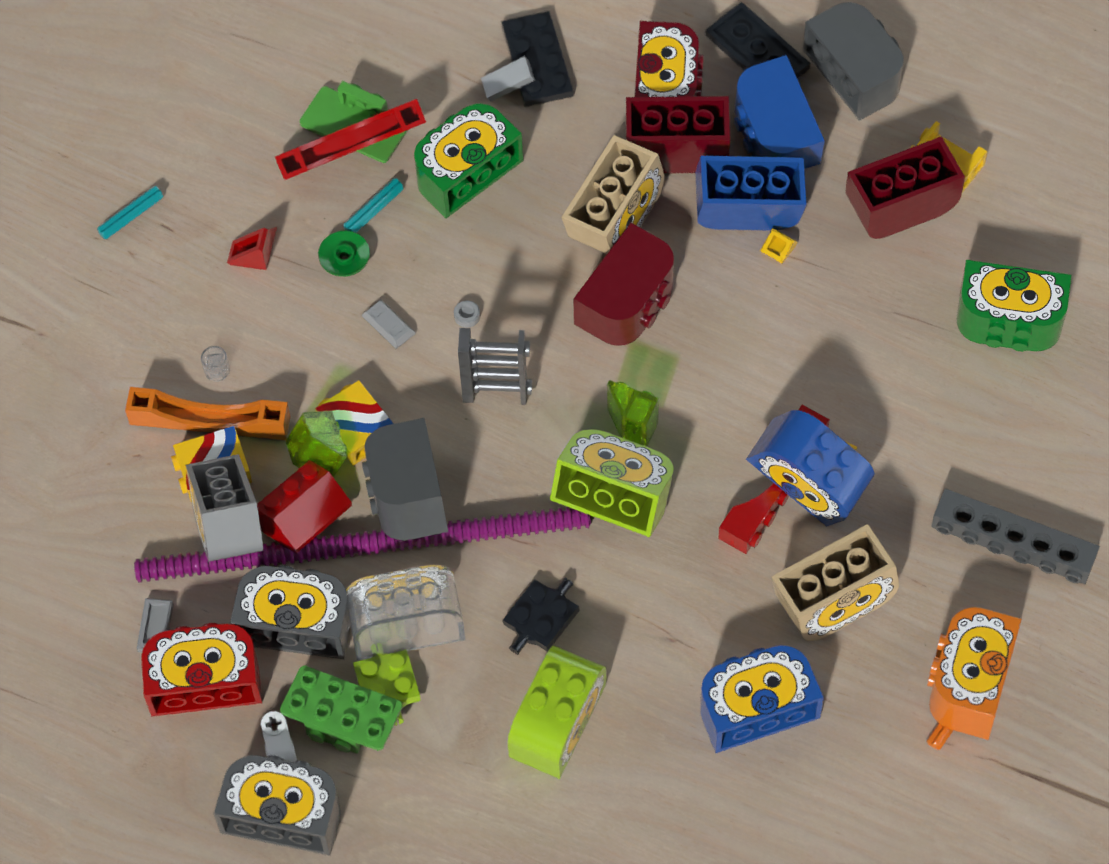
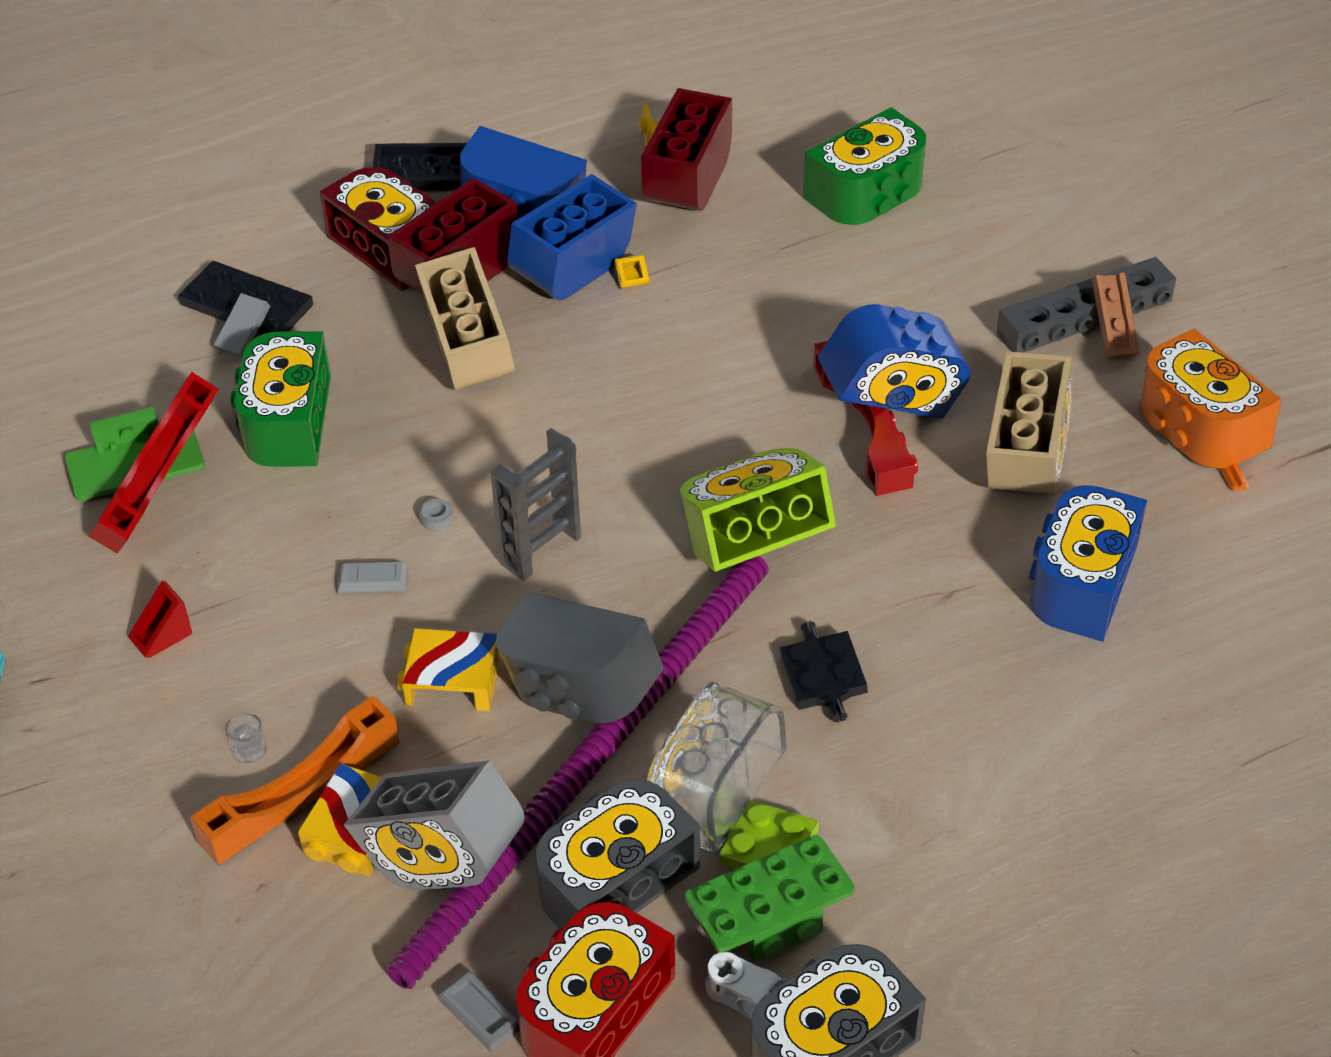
camera: 50 degrees left, 15 degrees down
(302, 506) = (513, 753): red slope -> none
(317, 439) = (449, 708): clear neon green slope -> none
(340, 245) = (259, 555): green dish -> none
(373, 206) = (237, 505): teal axle -> none
(555, 711) = (956, 716): lime brick -> none
(626, 288) = (560, 375): dark red brick -> none
(633, 412) = (687, 451): clear neon green slope -> none
(855, 57) = (524, 103): dark grey brick -> none
(1012, 561) = (1115, 315): none -> nougat hinge

